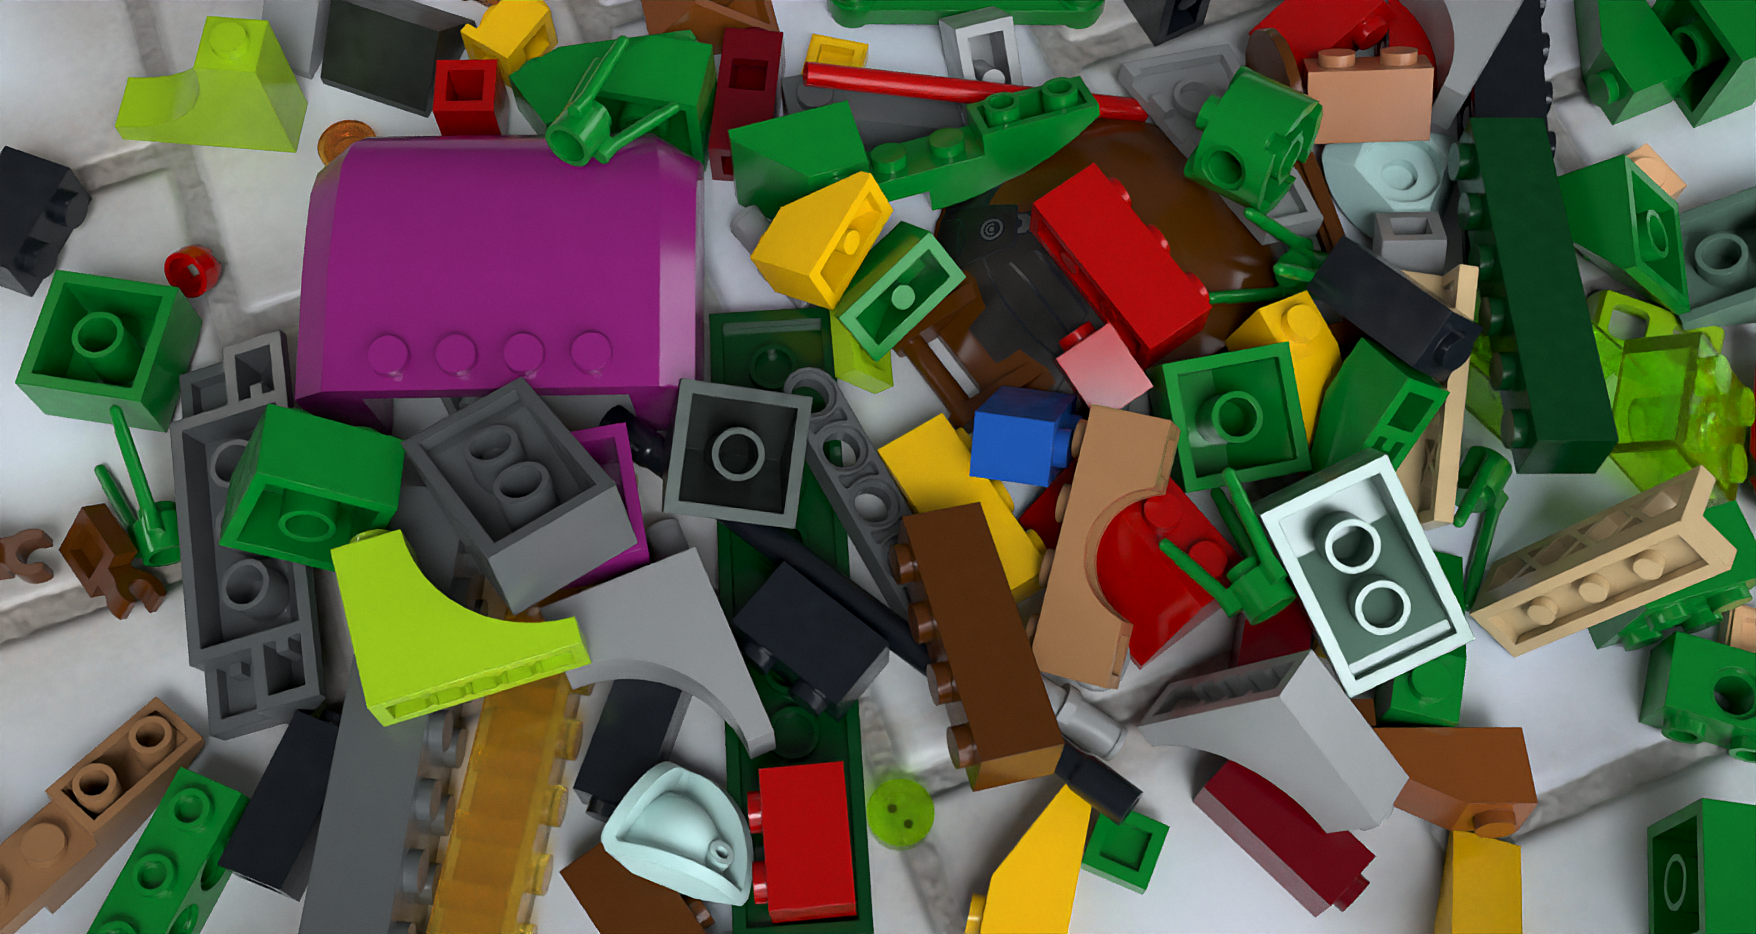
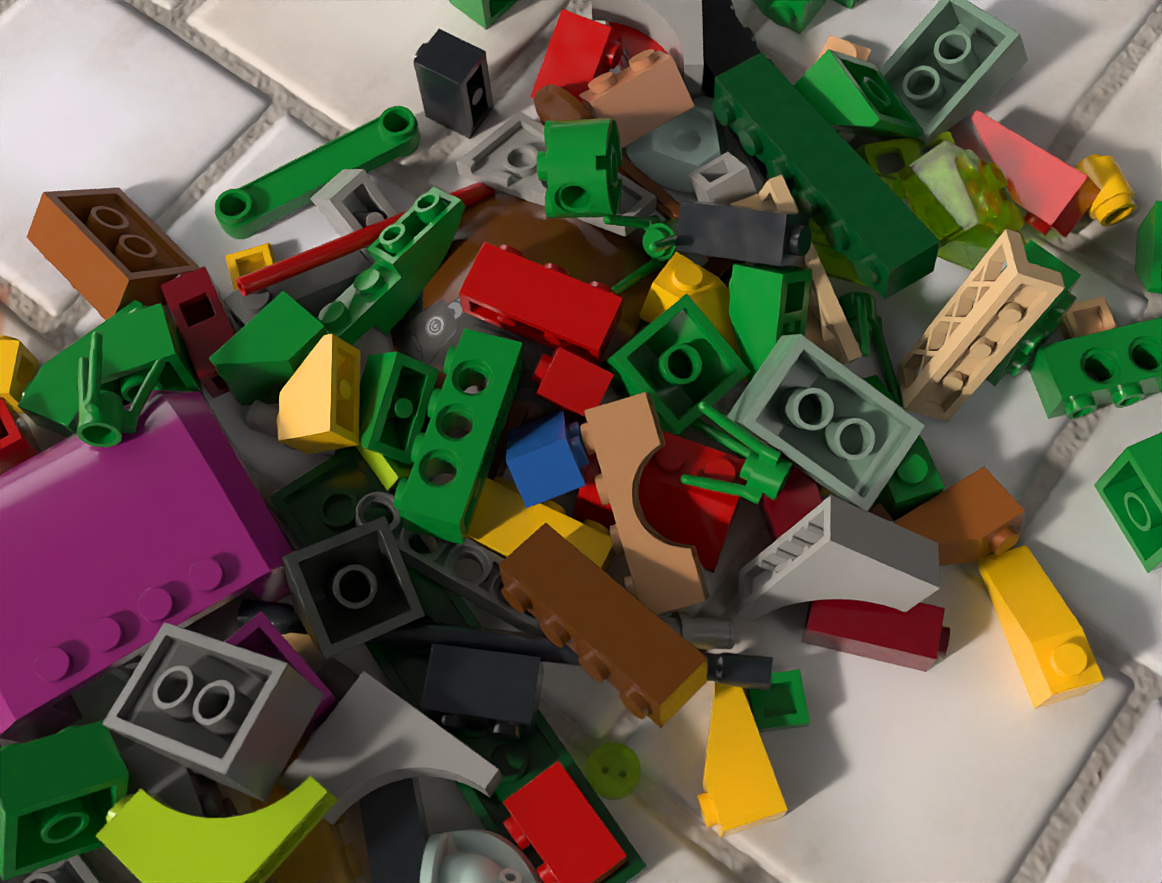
camera: 25 degrees left, 0 degrees up
(889, 429) = (449, 508): none -> green brick

